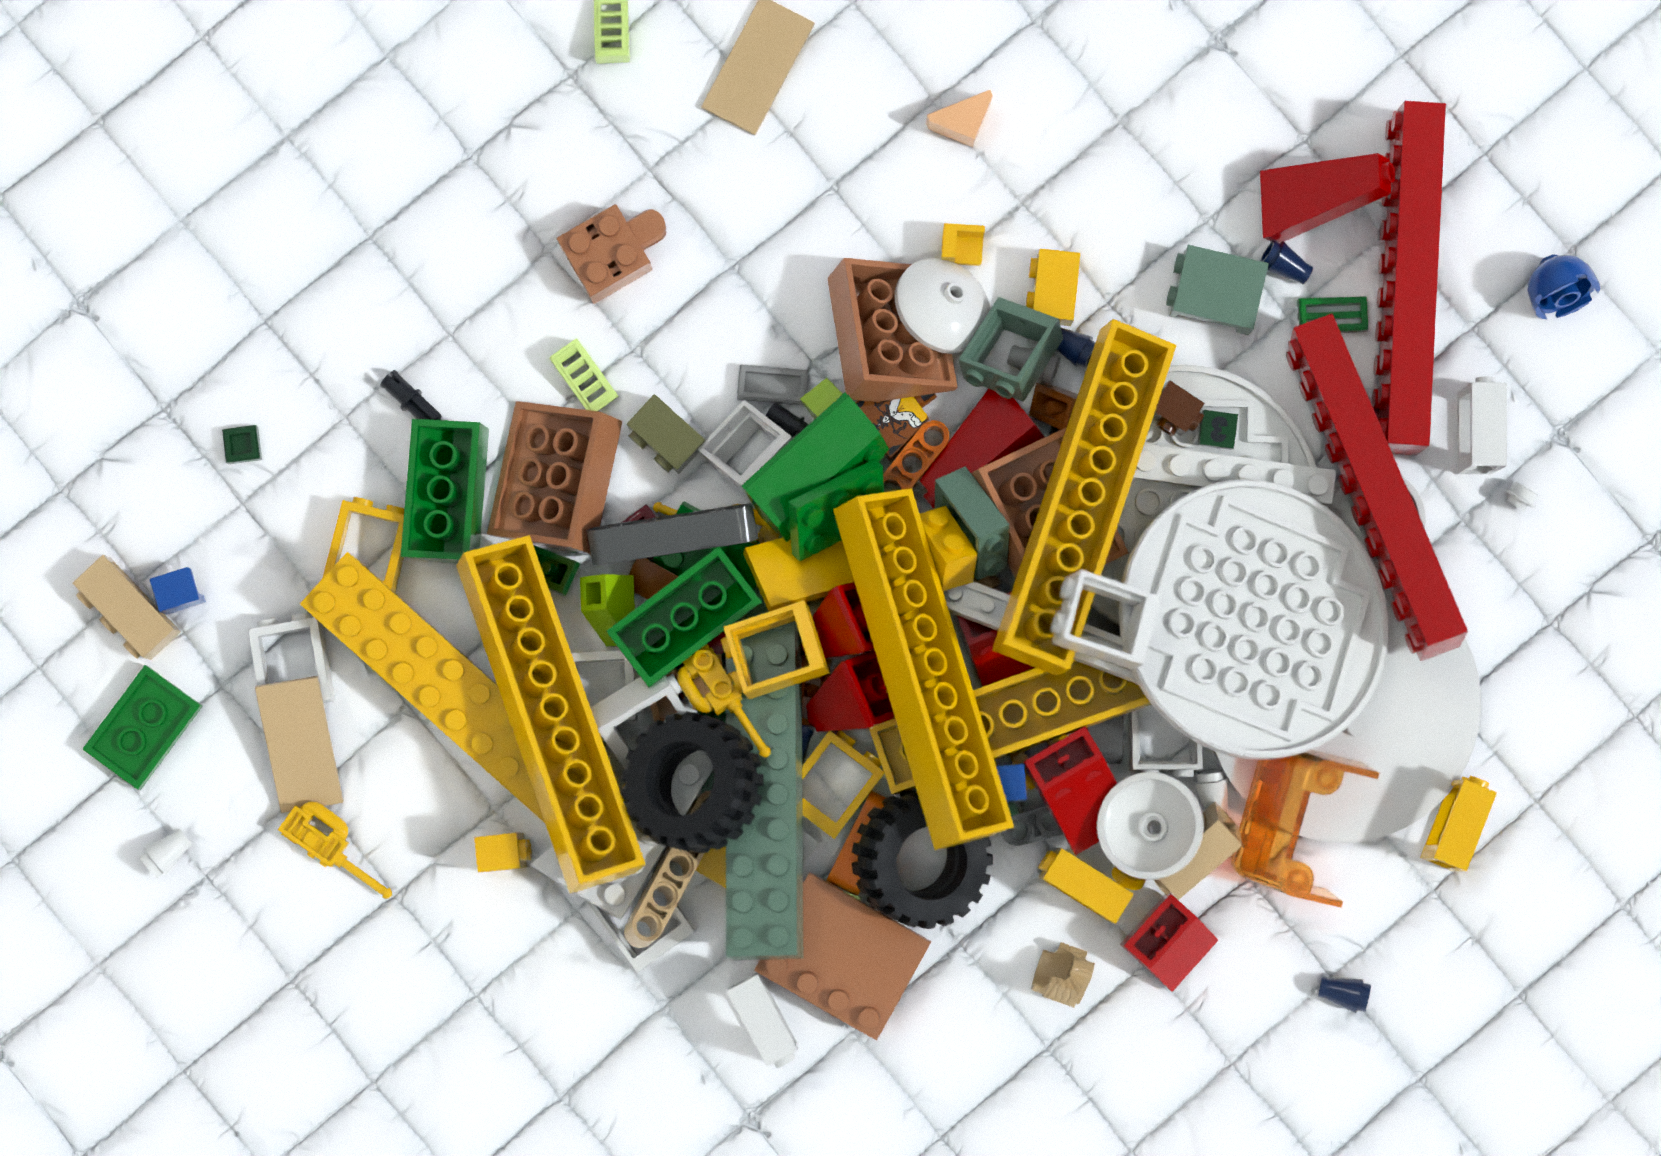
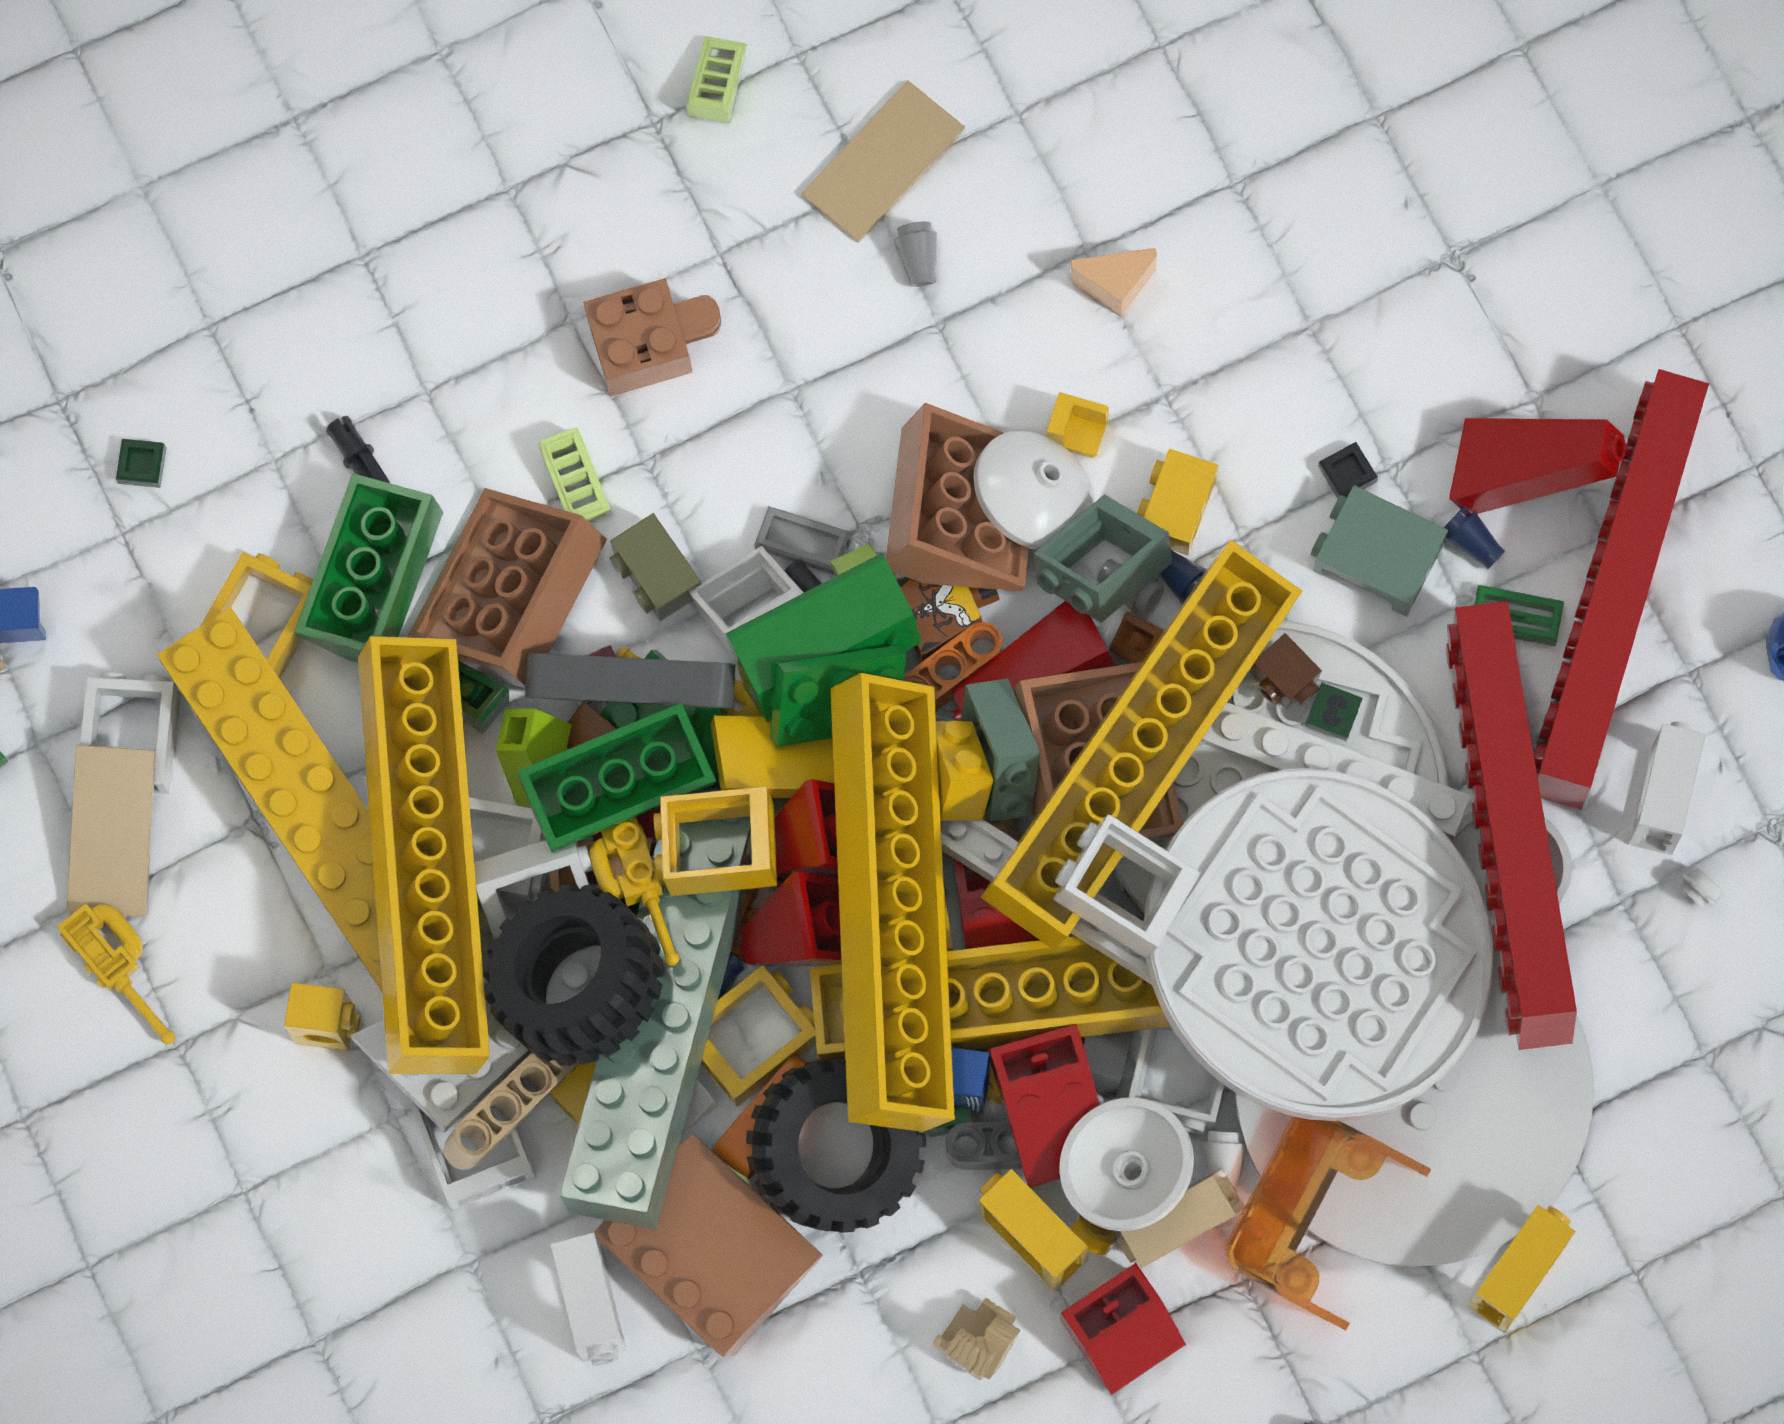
camera: 20 degrees right, 10 degrees down
(805, 134) = (918, 251): none -> light grey cone
(1177, 231) = (1347, 469): none -> black tile

